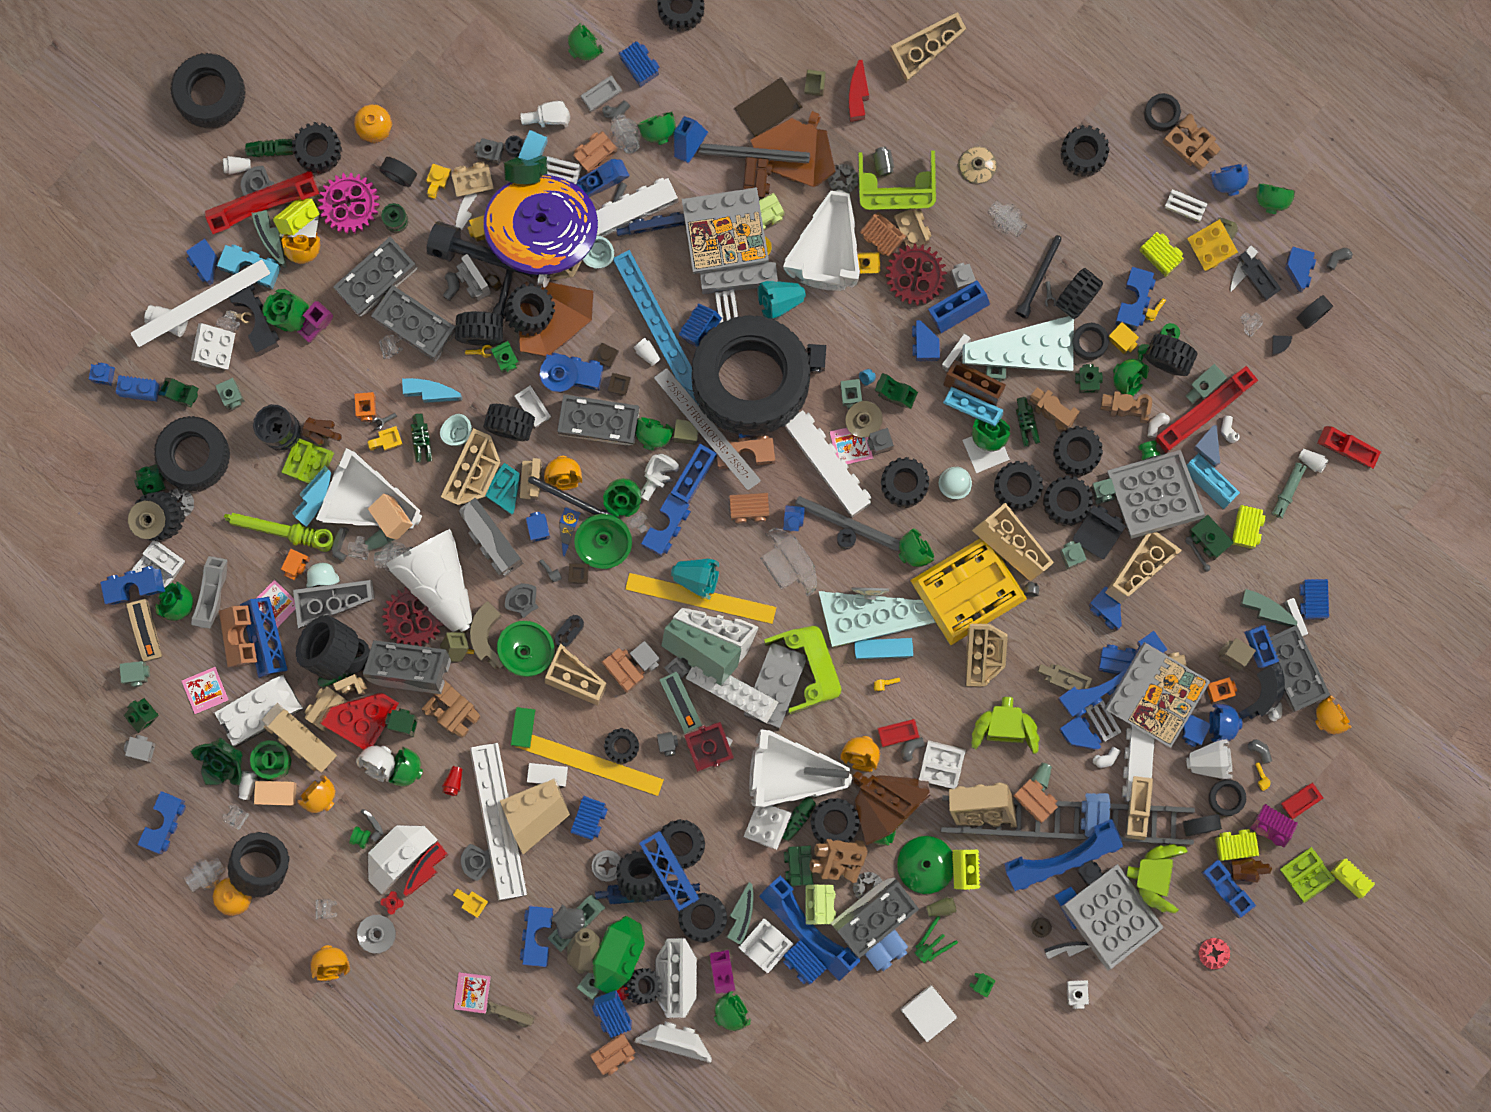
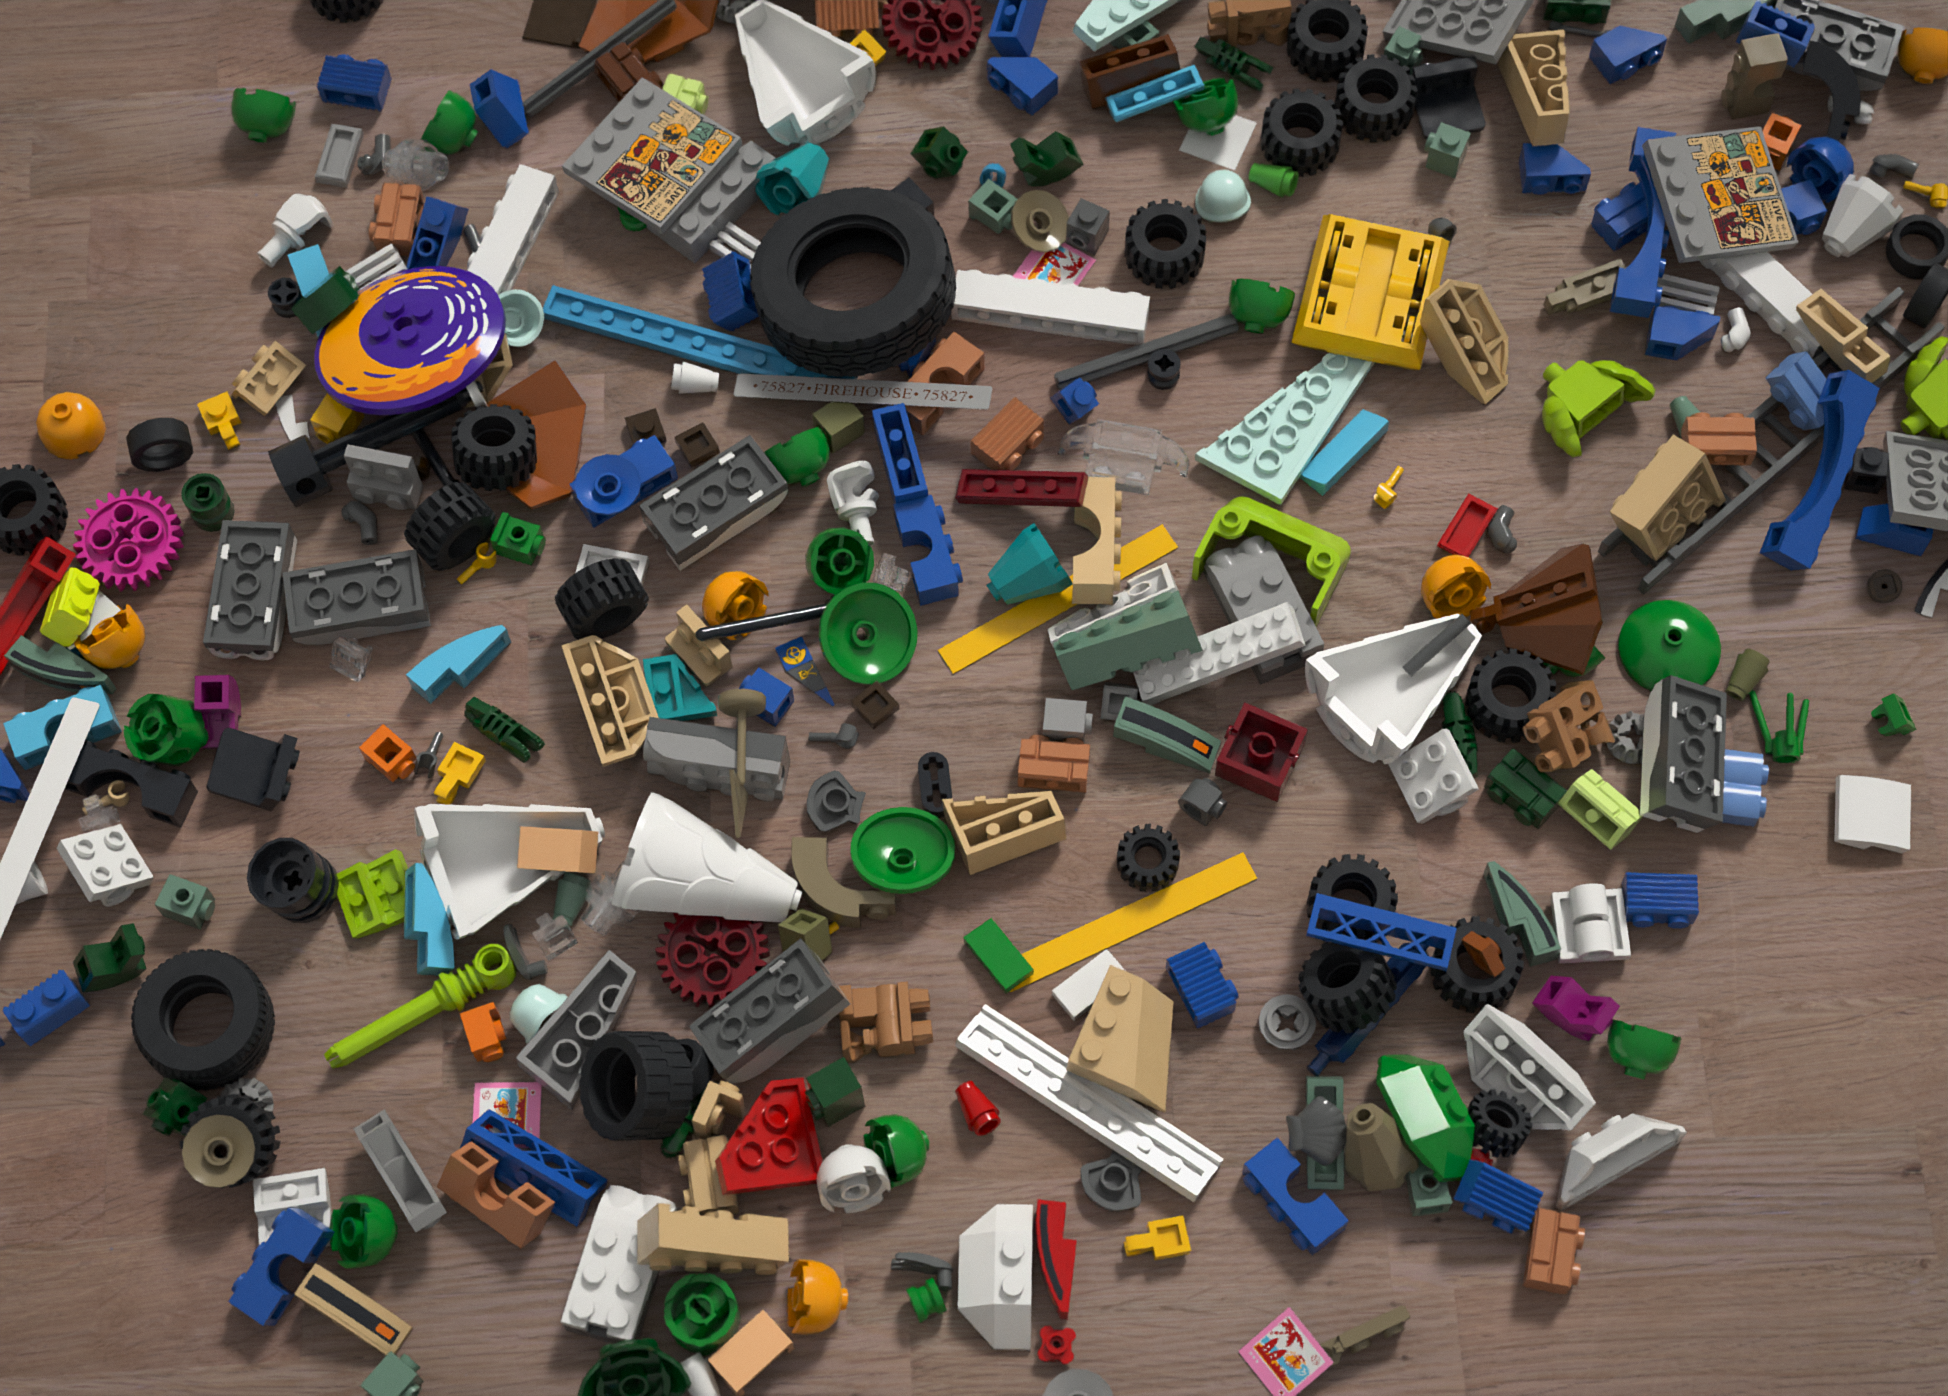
camera: 45 degrees left, 15 degrees down
(205, 690) = (517, 1315): sticker -> none
(306, 360) = (252, 768): none -> black bracket
(316, 429) = (357, 836): reddish brown rock -> none
(456, 430) = (542, 673): light aqua helmet -> none
(479, 564) = (740, 704): none -> dark tan piece
(493, 156) = (258, 328): dark grey brick -> none
(656, 223) = (556, 232): dark blue plate -> none
(705, 917) = (1484, 953): none -> dark orange plate
(719, 605) = (1094, 570): none -> tan arch
(730, 537) = (1022, 488): none -> dark red tile
(831, 955) = (1545, 849): blue arch -> none
(852, 344) = (939, 153): none -> dark green brick
(870, 593) = (1259, 393): light grey dish -> none
(942, 764) = (1558, 515): white slope -> none
(956, 353) = (1071, 61): white tile -> none
(966, 869) = (1725, 598): neon yellow brick -> none
(986, 497) = (1274, 178): none -> bright green cone
(1013, 542) = (1367, 190): tan wedge -> none
(1202, 583) = (1626, 50): none -> blue slope

